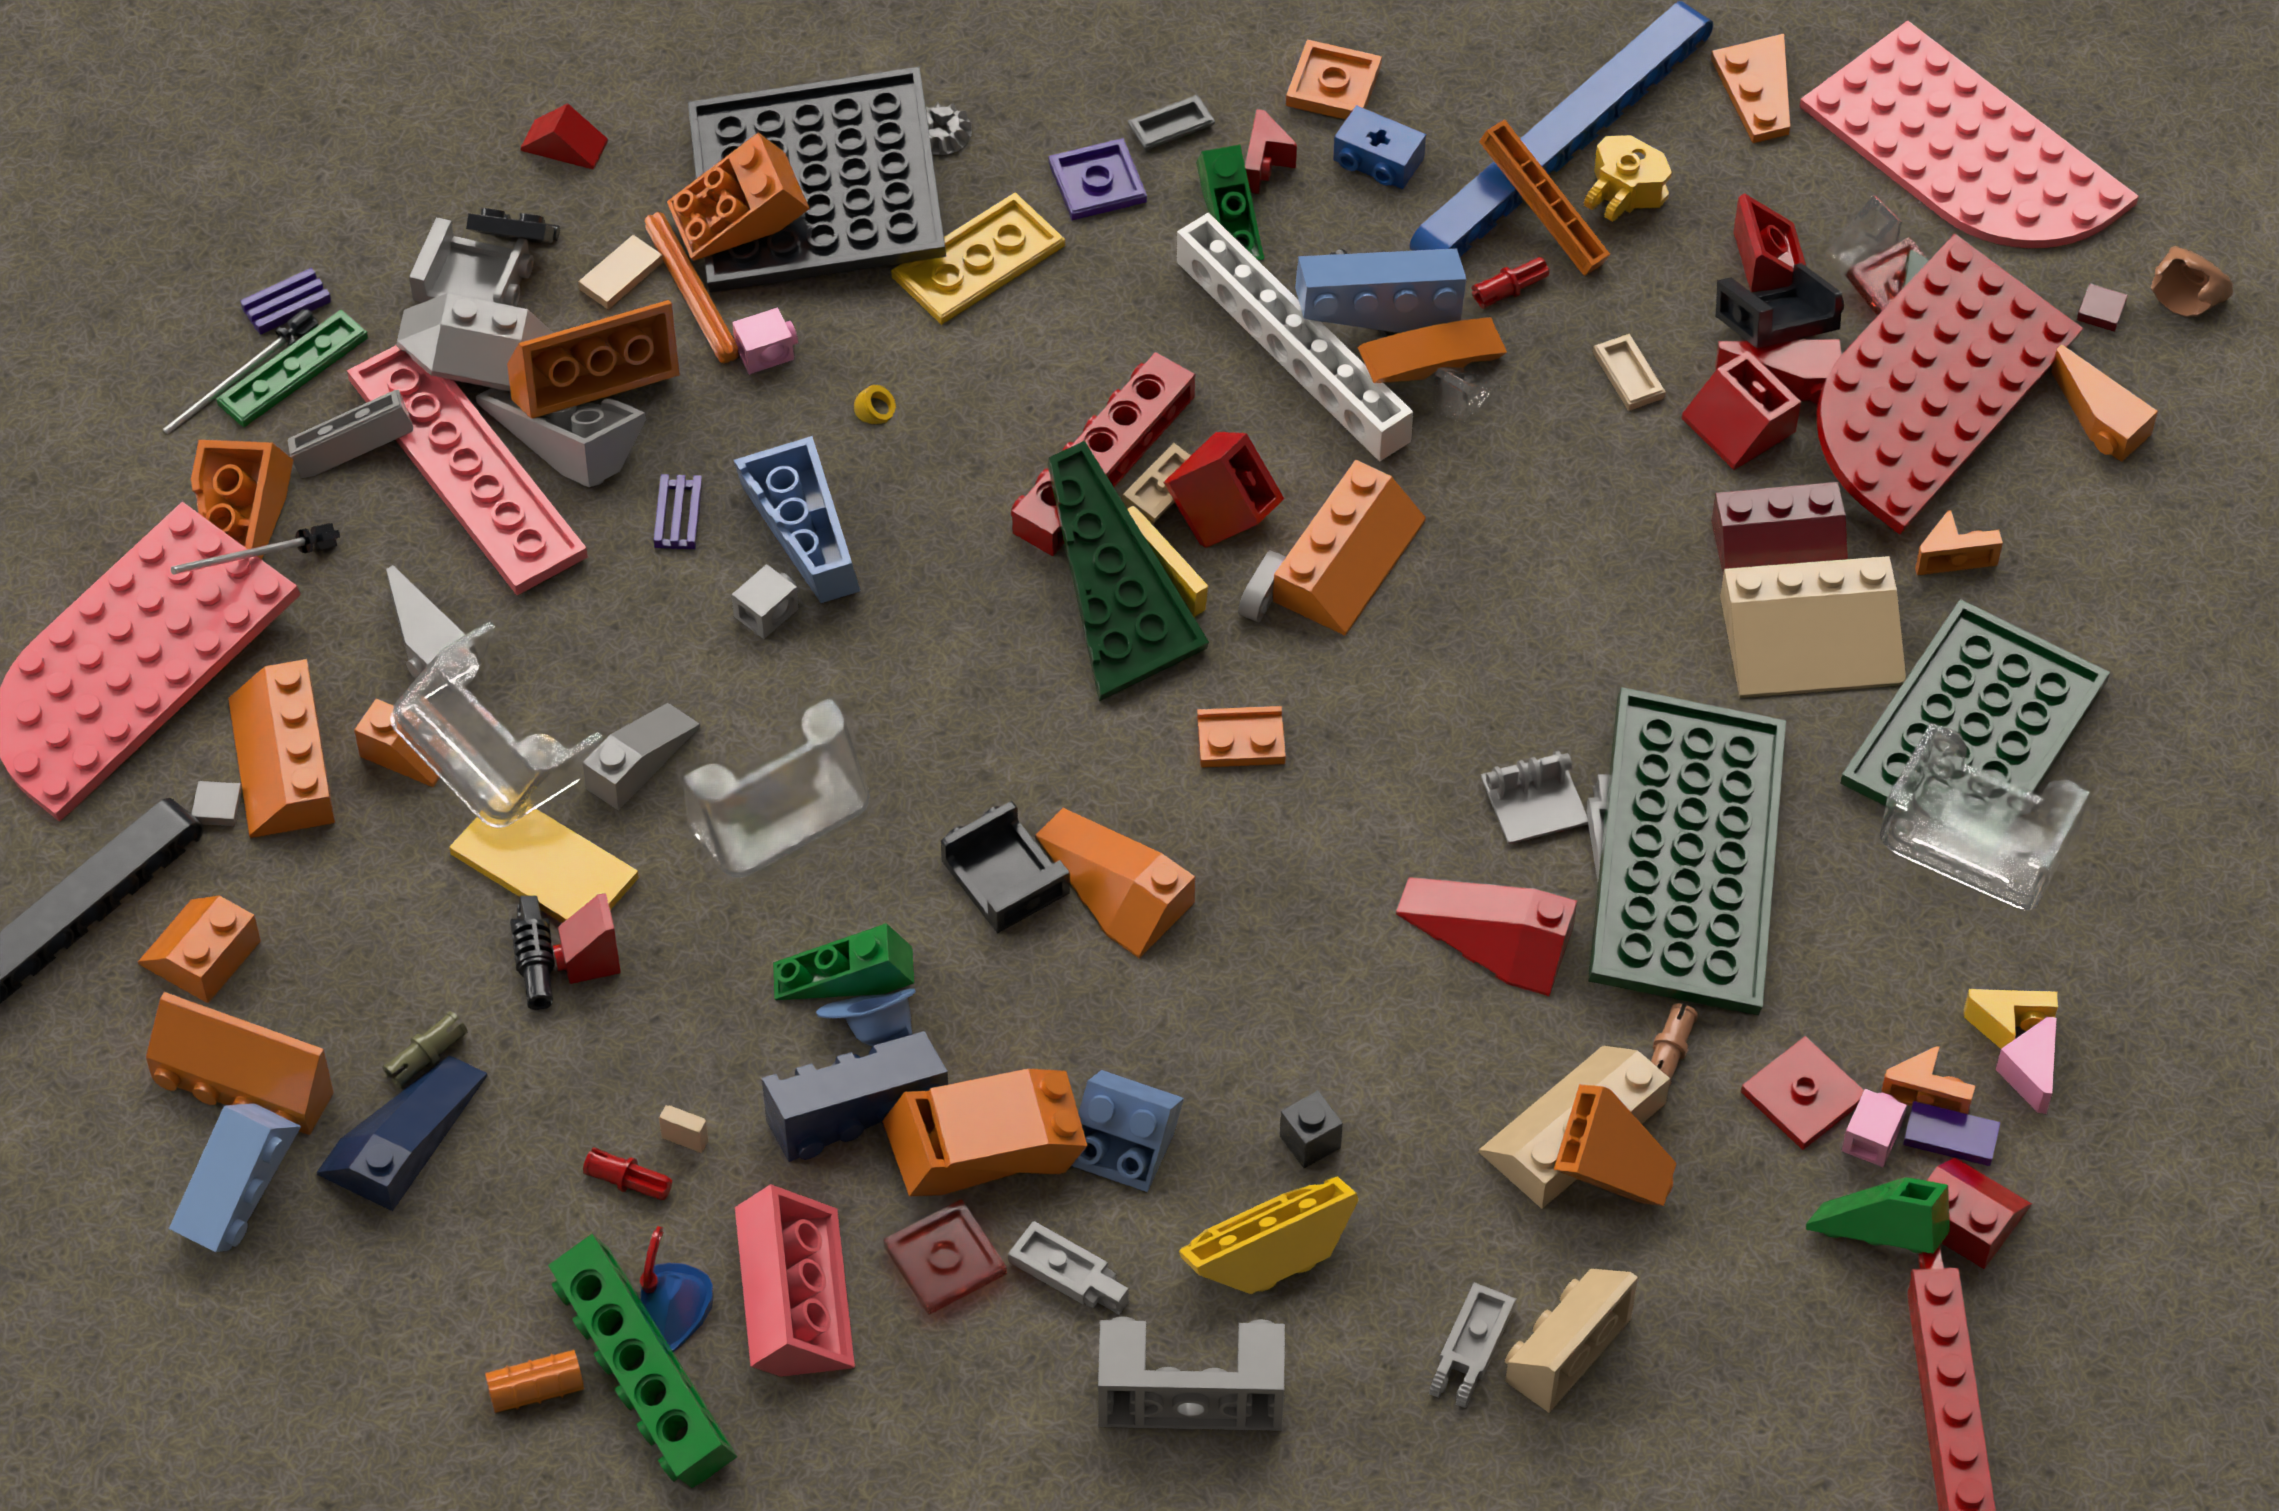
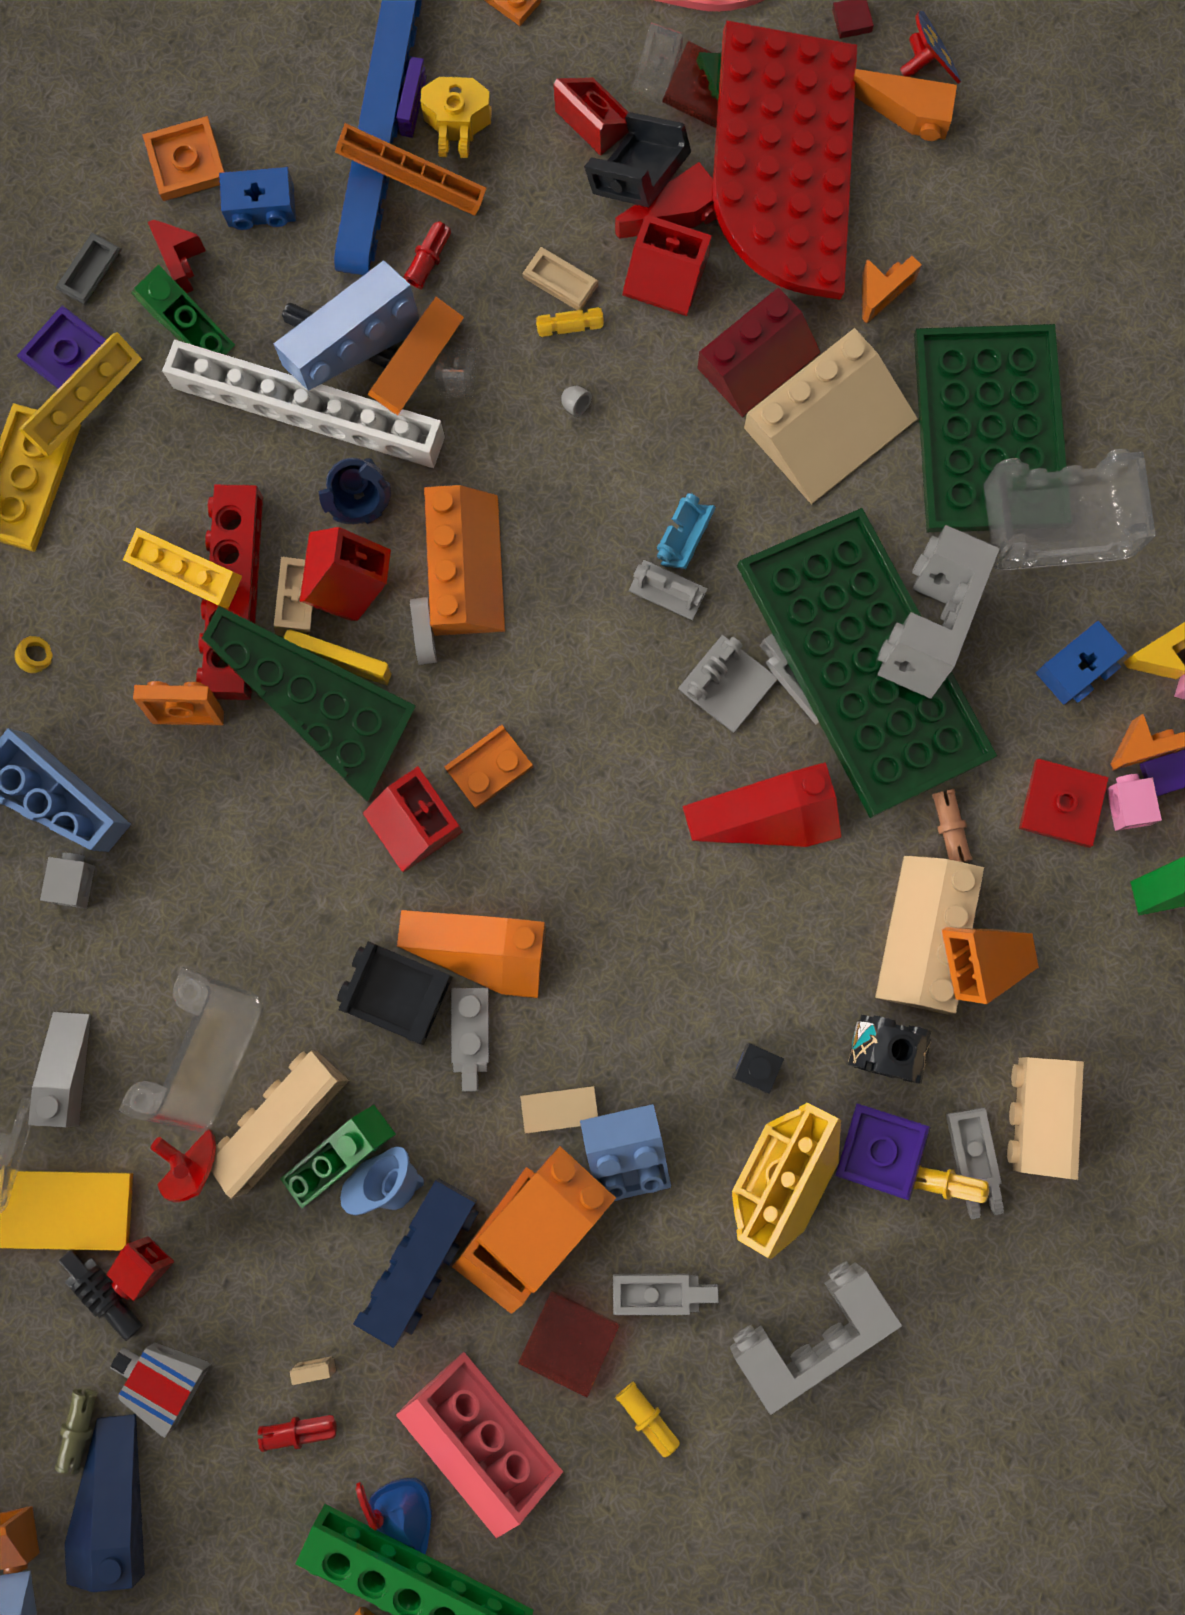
camera: 30 degrees left, 25 degrees up
(535, 1055) = (159, 1384): none -> torso
(695, 877) = (187, 1171): none -> red shield
(812, 906) = (276, 1123): none -> tan slope
(972, 1366) = (648, 1420): none -> yellow axle
(983, 510) = (178, 704): none -> orange plate
(1049, 947) = (469, 1034): none -> light grey hinge
(1072, 401) = (182, 568): none -> yellow plate
(1084, 1055) = (558, 1109): none -> tan tile
(1085, 215) = (80, 394): none -> yellow plate
(1132, 730) = (411, 819): none -> red slope
(1289, 421) = (349, 478): none -> dark blue helmet
(1383, 1277) = (883, 1151): none -> dark purple tile
(1427, 1336) = (952, 1185): none -> yellow axle
(1455, 1181) = (890, 1048): none -> black brick
(1534, 685) = (667, 589): none -> light grey hinge
(1565, 479) = (576, 400): none -> light grey hinge
(1582, 151) = (411, 96): none -> dark purple tile
(1602, 640) = (679, 545): none -> dark azure hinge
(1610, 411) = (570, 322): none -> yellow axle
(1829, 827) = (954, 573): none -> light grey plate
(1912, 977) = (1094, 647): none -> blue brick
(2161, 366) = (926, 47): none -> red shield

